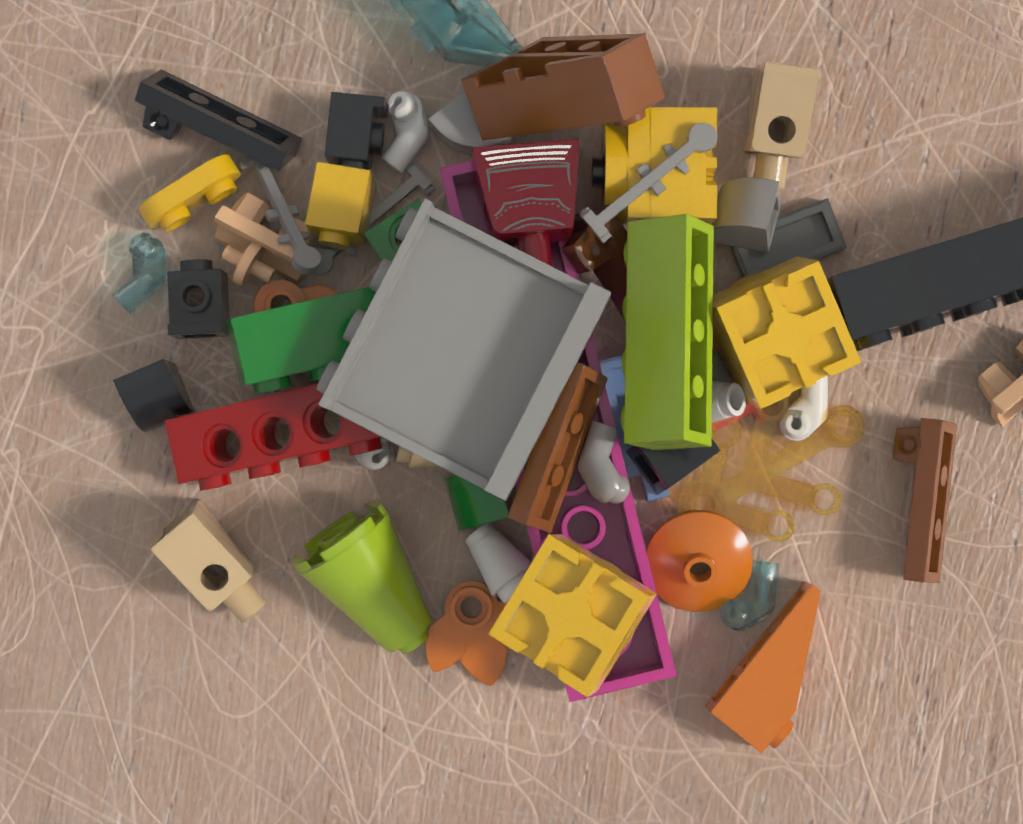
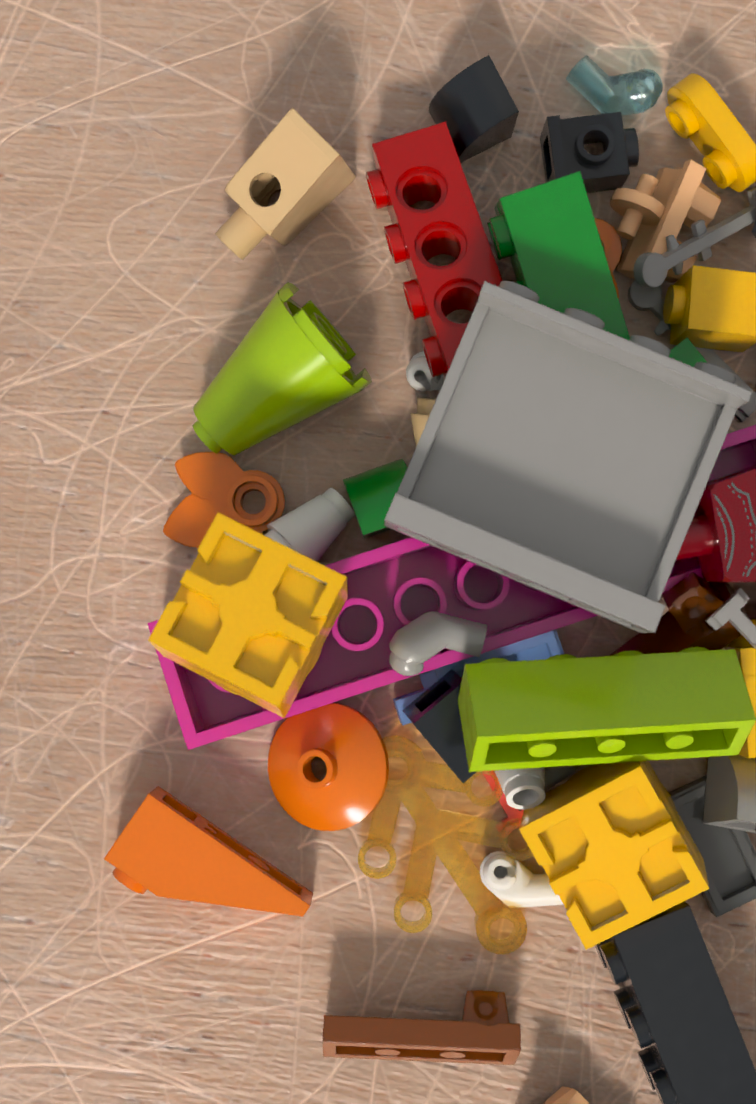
camera: 80 degrees right, 0 degrees up
(558, 450) = (449, 585): dark orange hinge -> none
(755, 602) = (284, 837): clear light blue arm -> none

